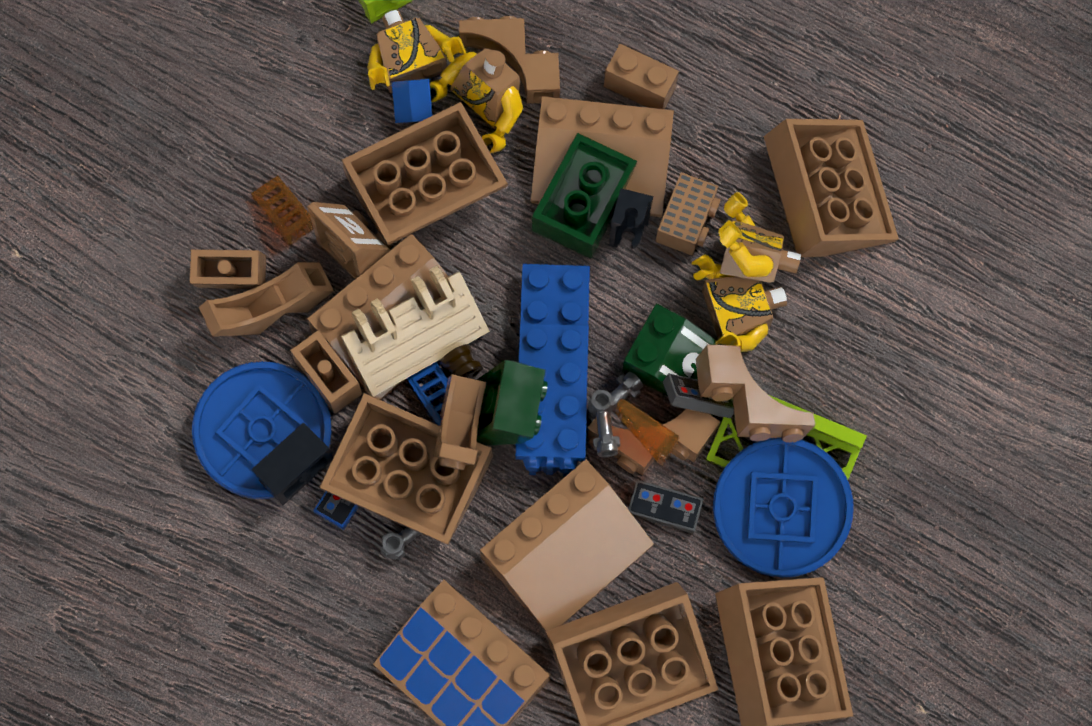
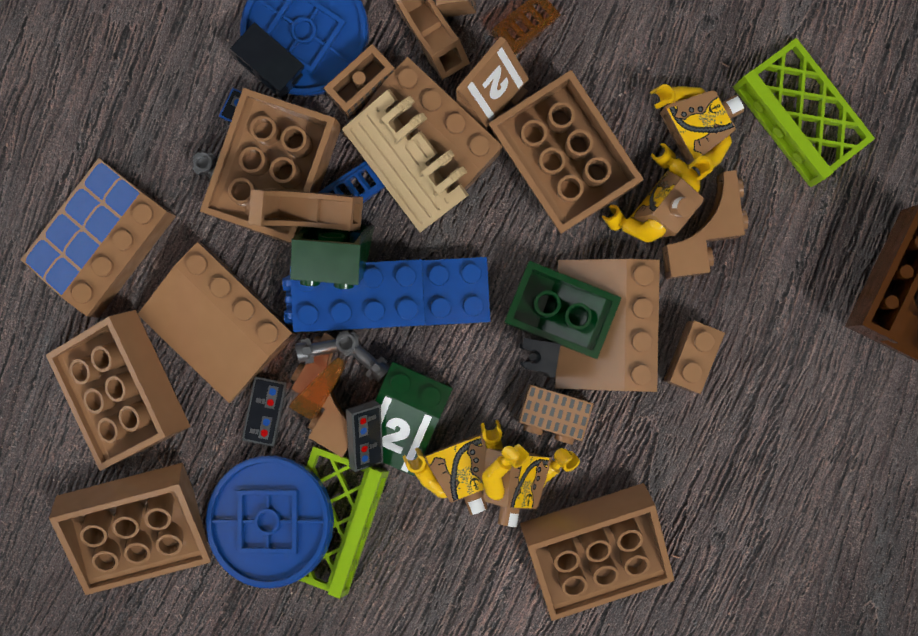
camera: 90 degrees right, 15 degrees up
(411, 100) = (647, 133): blue piece -> none
(461, 363) = (382, 208): dark brown wheel -> none
(757, 415) = (376, 461): medium nougat arch -> none

